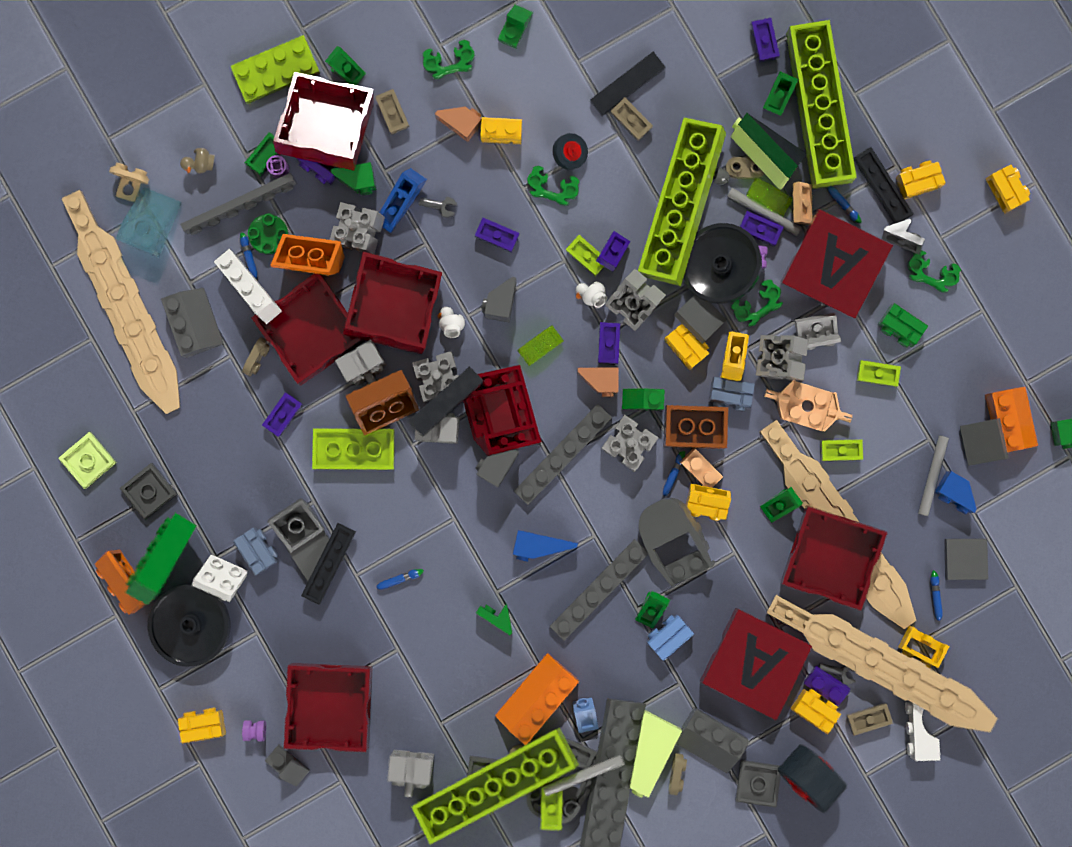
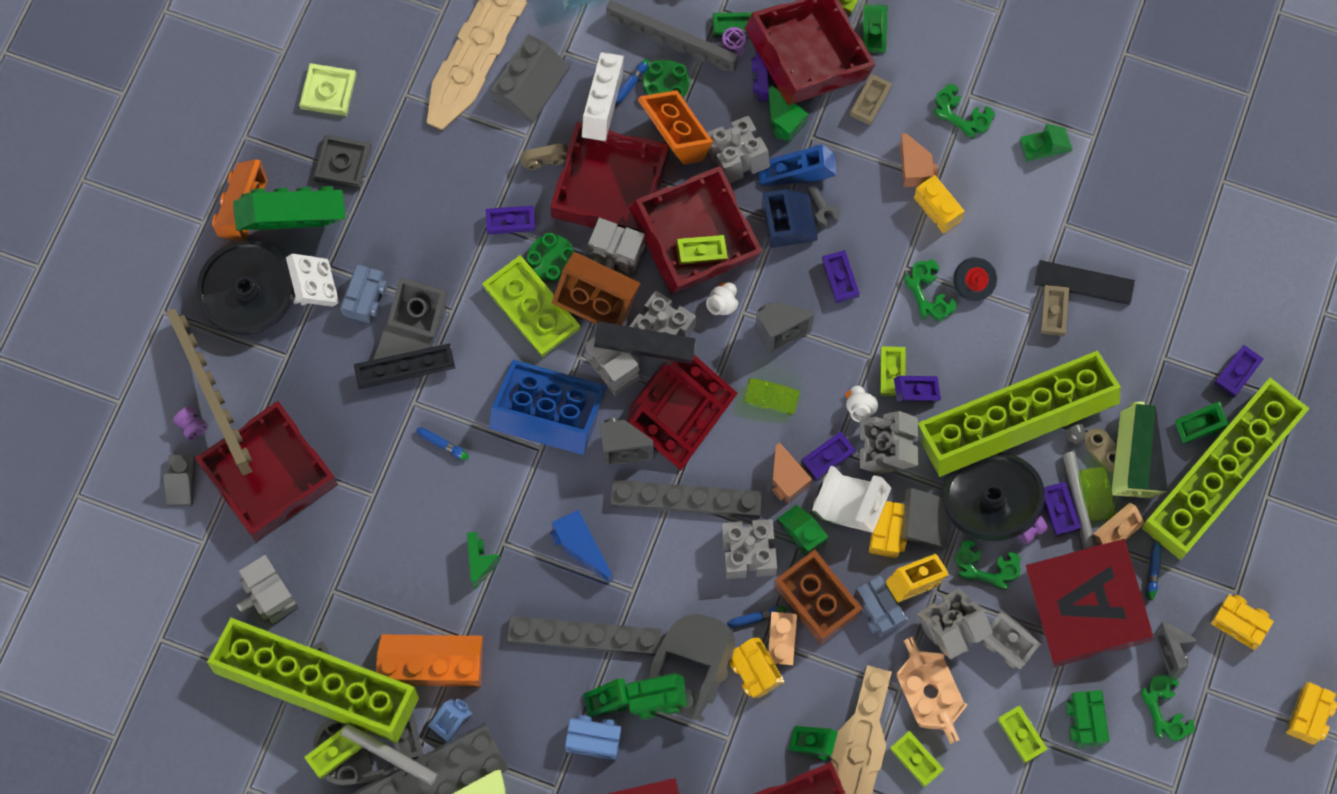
camera: 50 degrees right, 15 degrees down
(201, 726) = (158, 372): yellow brick -> none
(252, 706) = (213, 397): none -> dark tan plate
(330, 409) = (549, 256): none -> green dish
(408, 310) = (701, 250): none -> lime plate
(430, 493) = (547, 407): none -> blue slope
(431, 235) = (788, 218): none -> dark blue slope
(651, 354) = (851, 500): none -> white panel
(678, 579) = (657, 695): none -> green brick
(883, 186) = (1205, 592): black tile -> none

